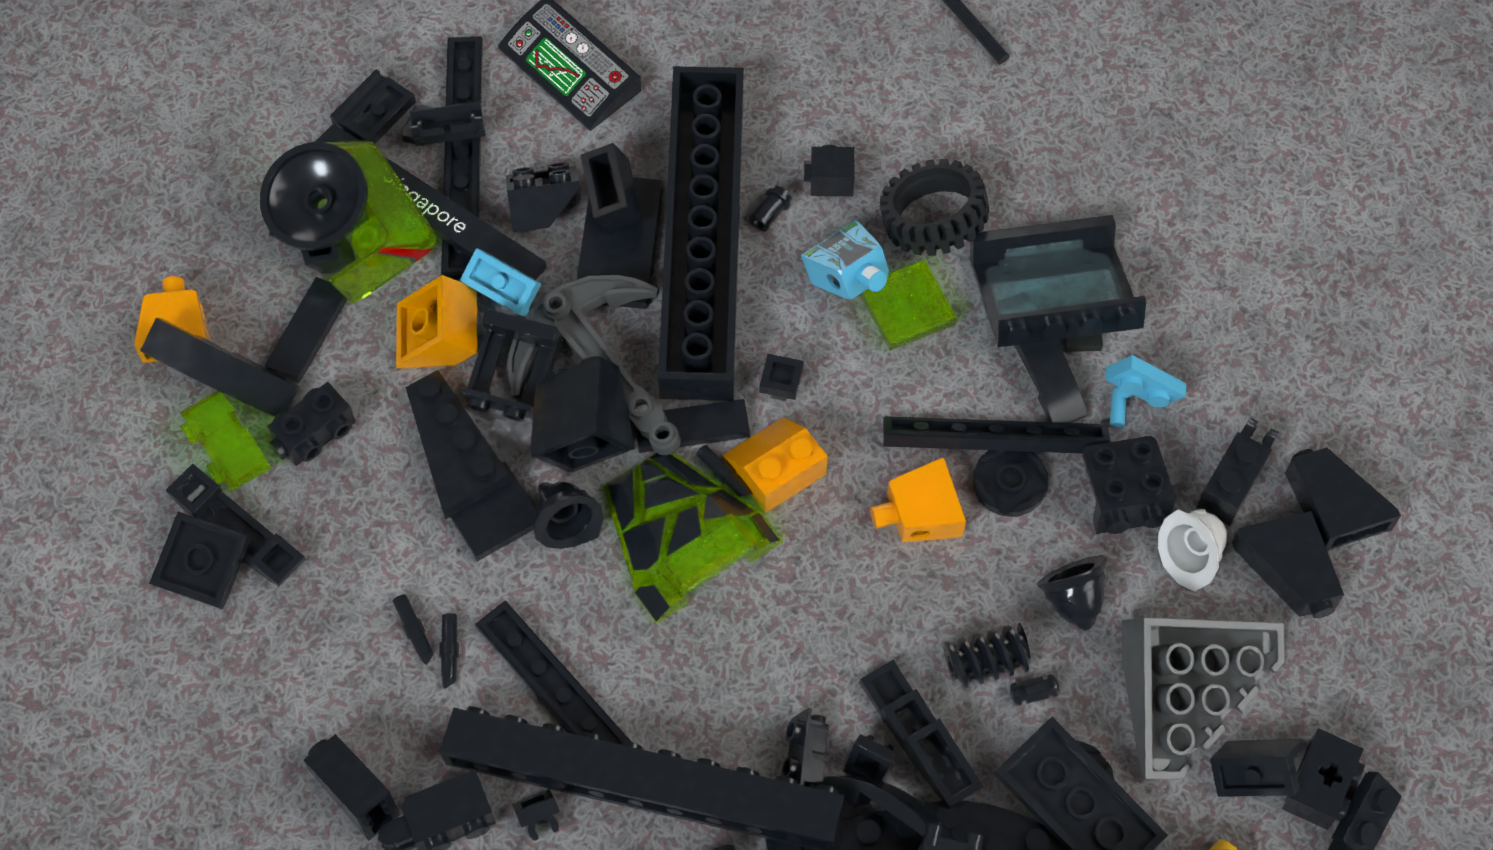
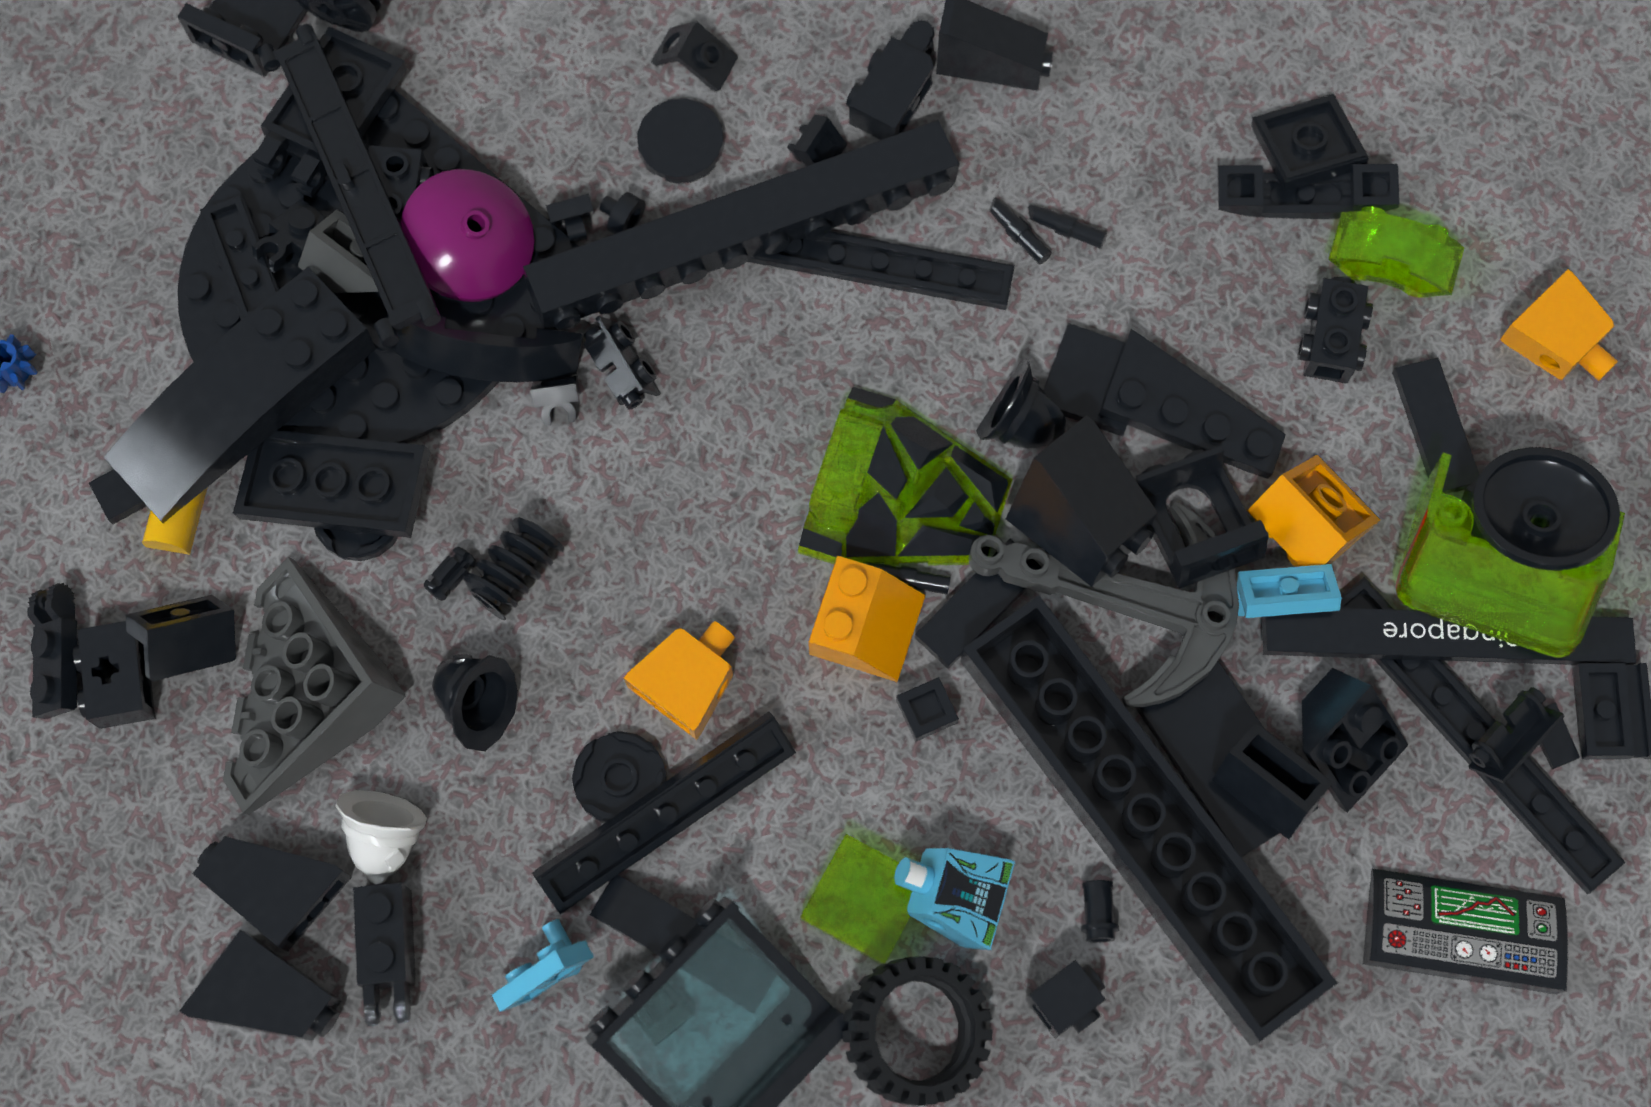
camera: 145 degrees right, 10 degrees up
(219, 368) = (1454, 313): black slope -> none
(920, 734) = (527, 451): black slope -> none
(1128, 484) = (491, 848): black bracket -> none

